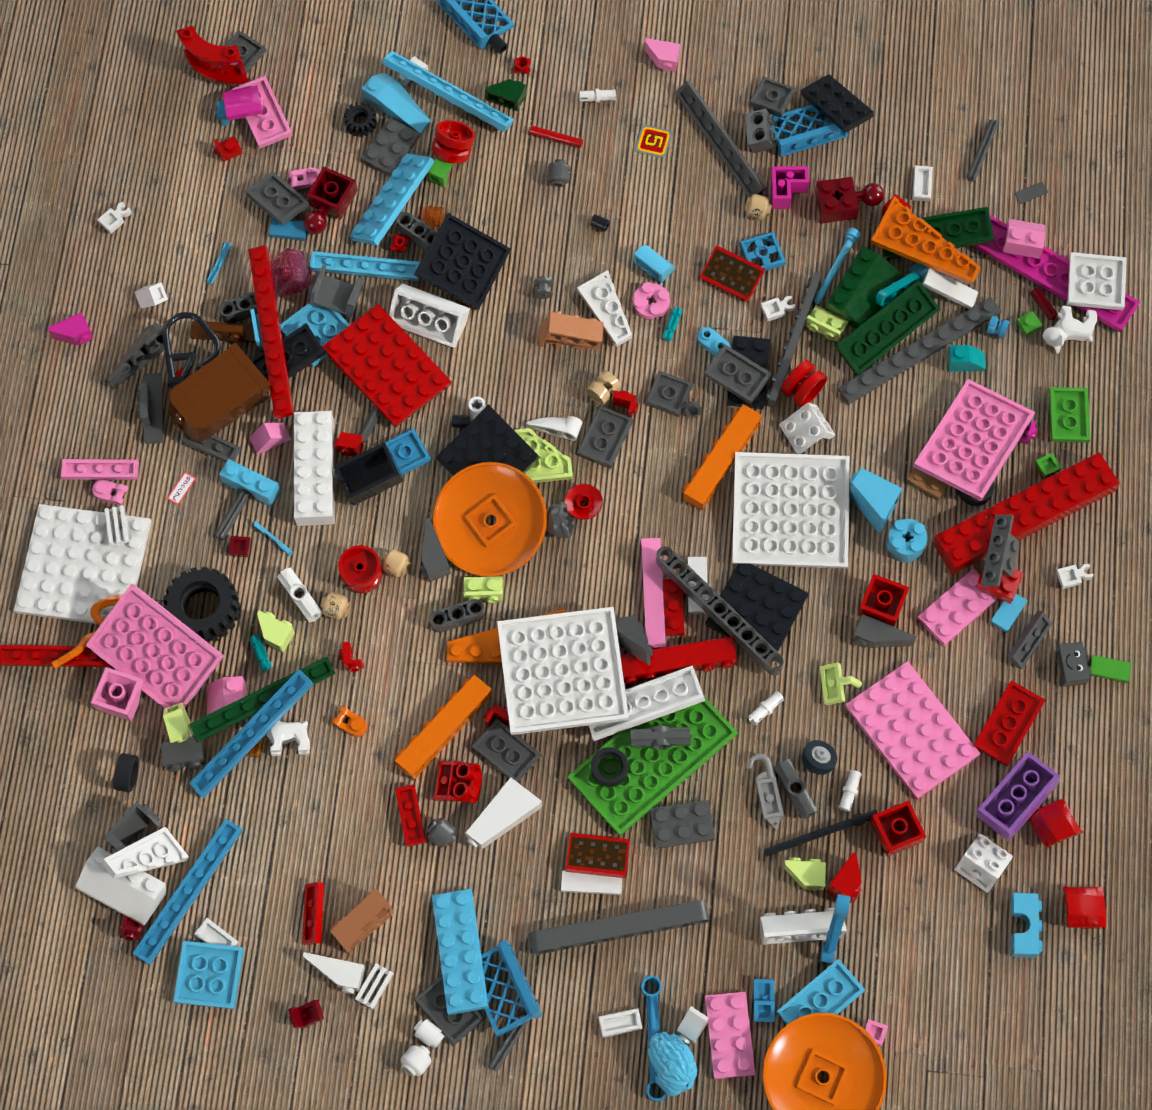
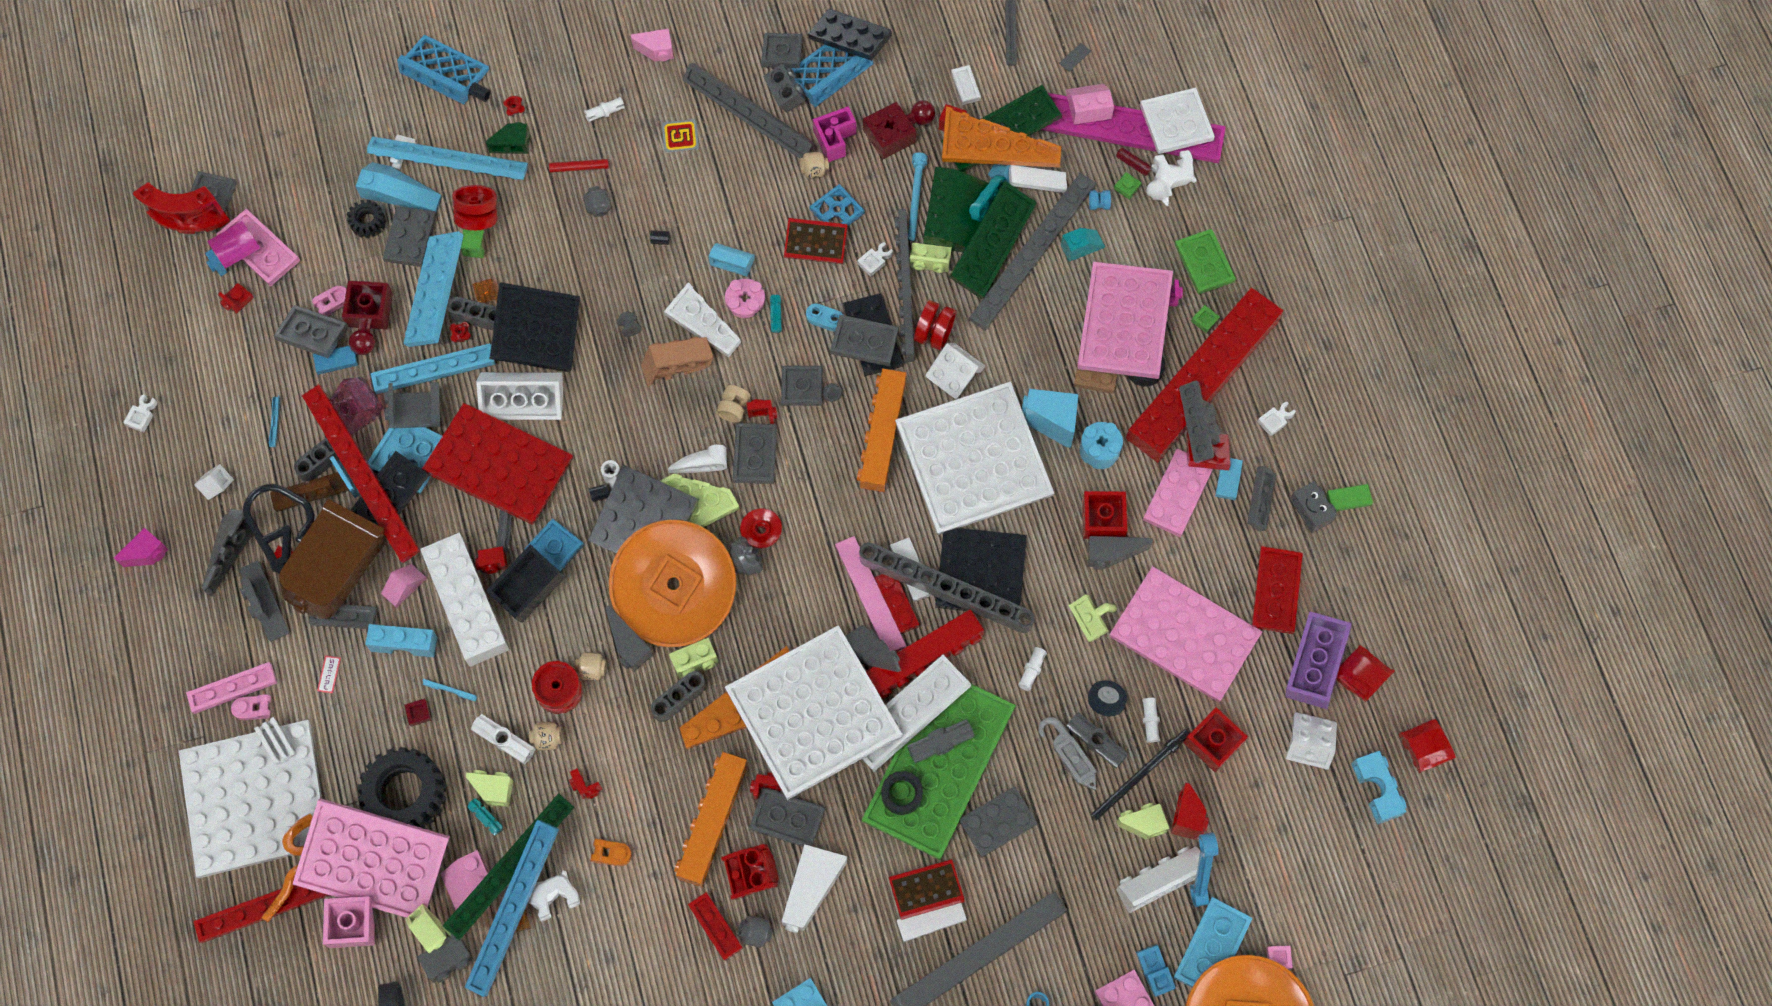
camera: 25 degrees left, 0 degrees up
(232, 514) = (396, 681): dark grey axle -> none

